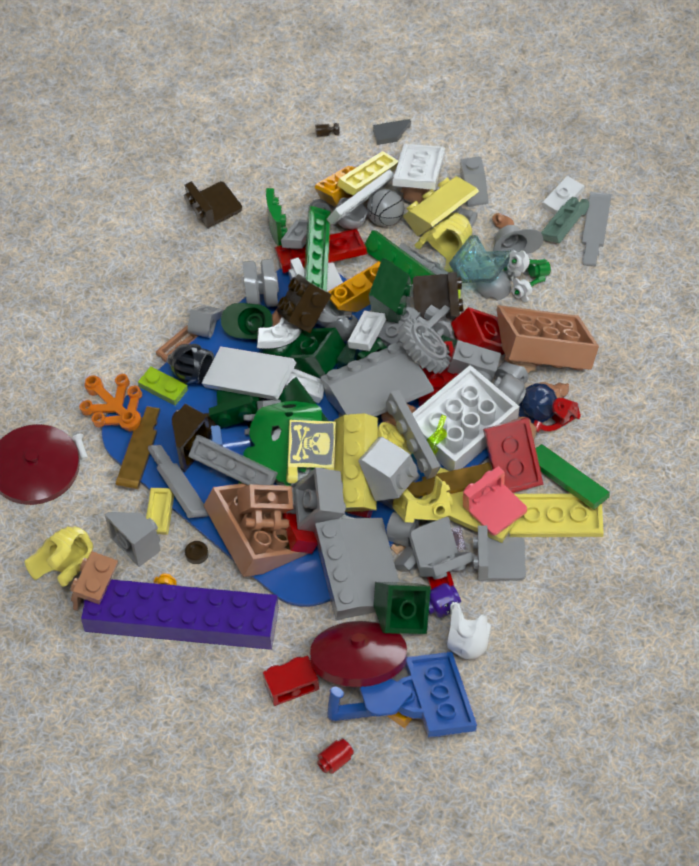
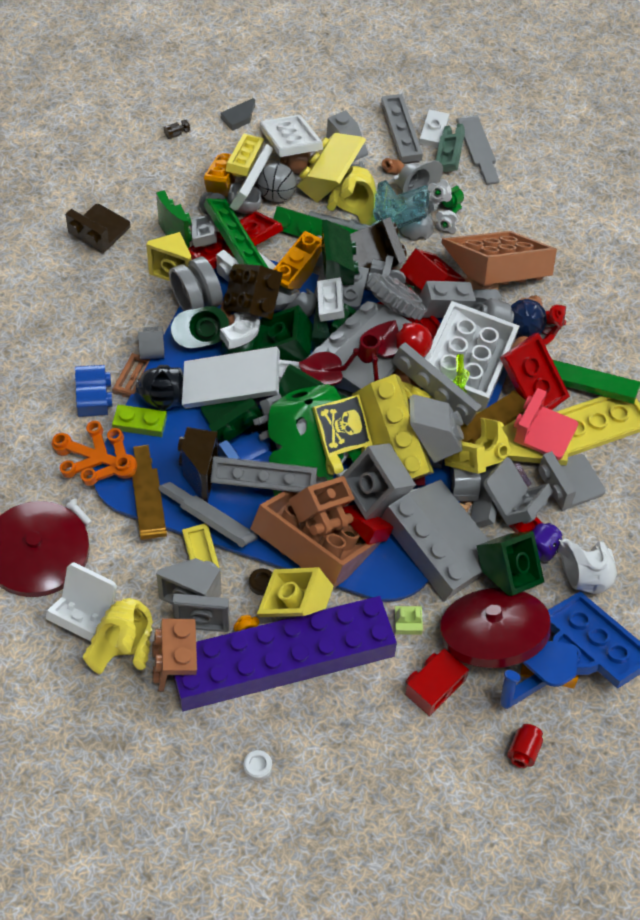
camera: 30 degrees left, 0 degrees up
(47, 517) = (83, 601): none -> white bracket
(120, 693) = (257, 765): none -> white tile
(131, 559) = (208, 612): none -> light grey tile
(137, 347) = (92, 390): none -> blue brick
(210, 569) = (295, 593): none -> light yellow slope
(252, 246) = (166, 253): none -> light yellow slope
(297, 624) = (408, 620): none -> yellowish green tile
(327, 388) = (376, 341): none -> dark red plant
(413, 389) = (416, 337): none -> red hair
(531, 187) = (401, 128): none -> light grey plate

